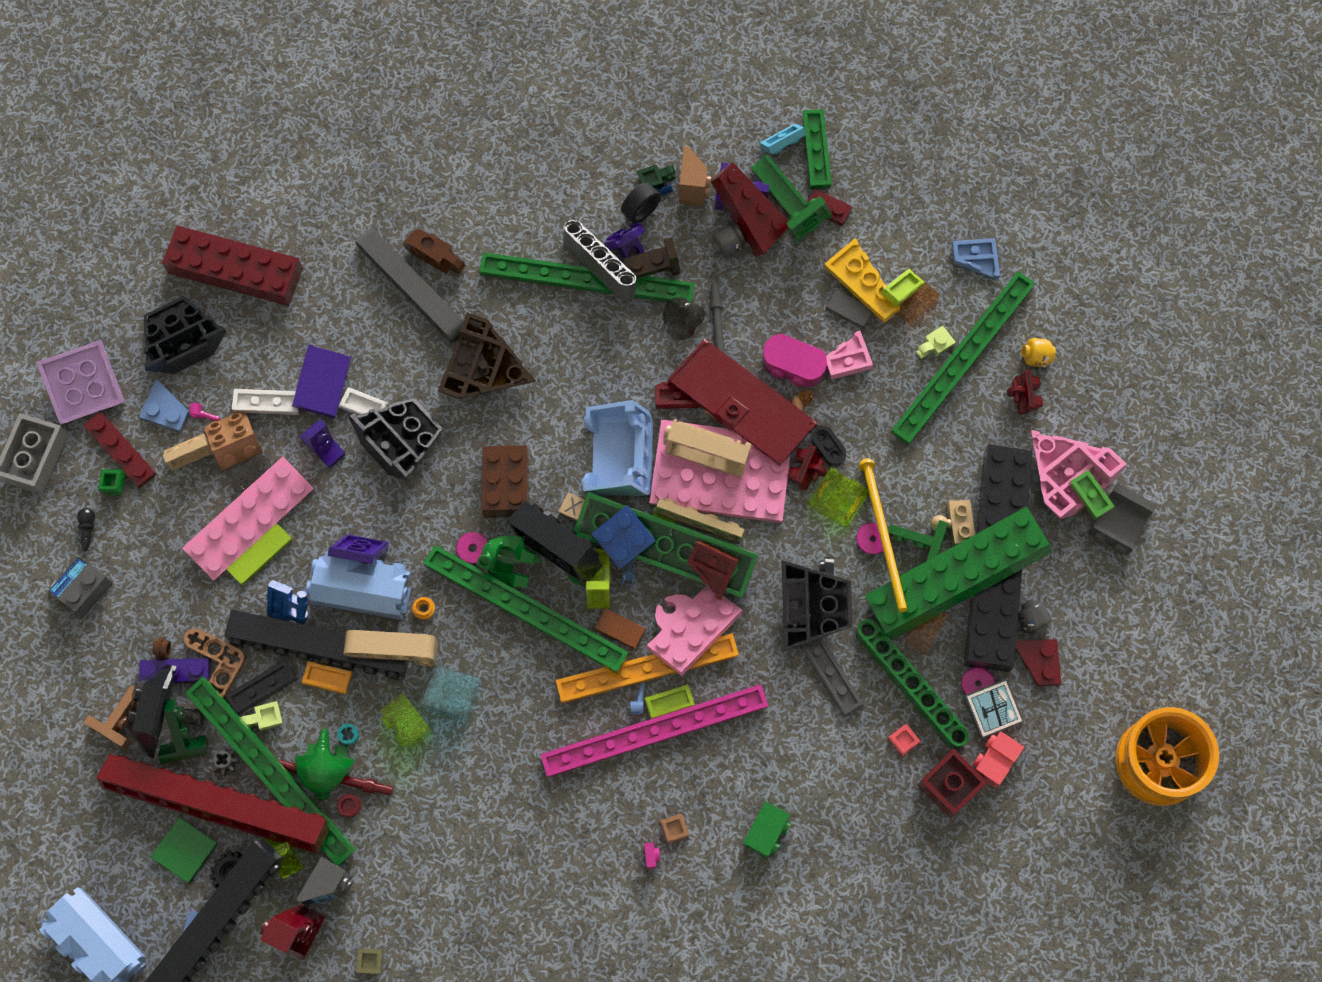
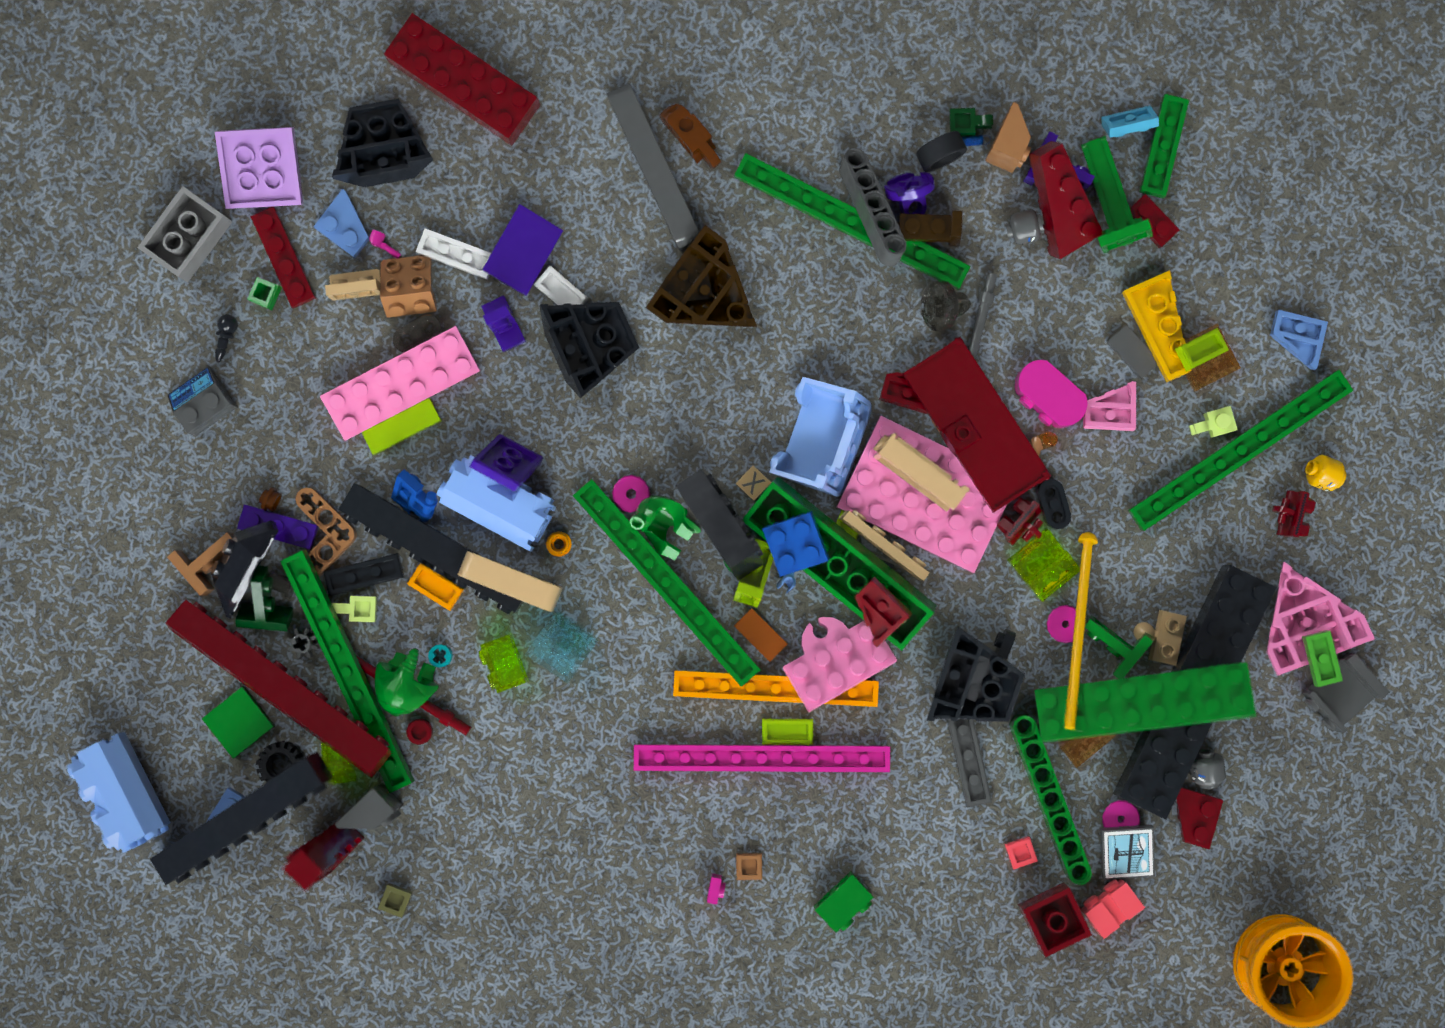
camera: 20 degrees right, 15 degrees up
(504, 479) = (688, 431): reddish brown brick -> none
(637, 706) = (751, 725): medium blue hand -> none

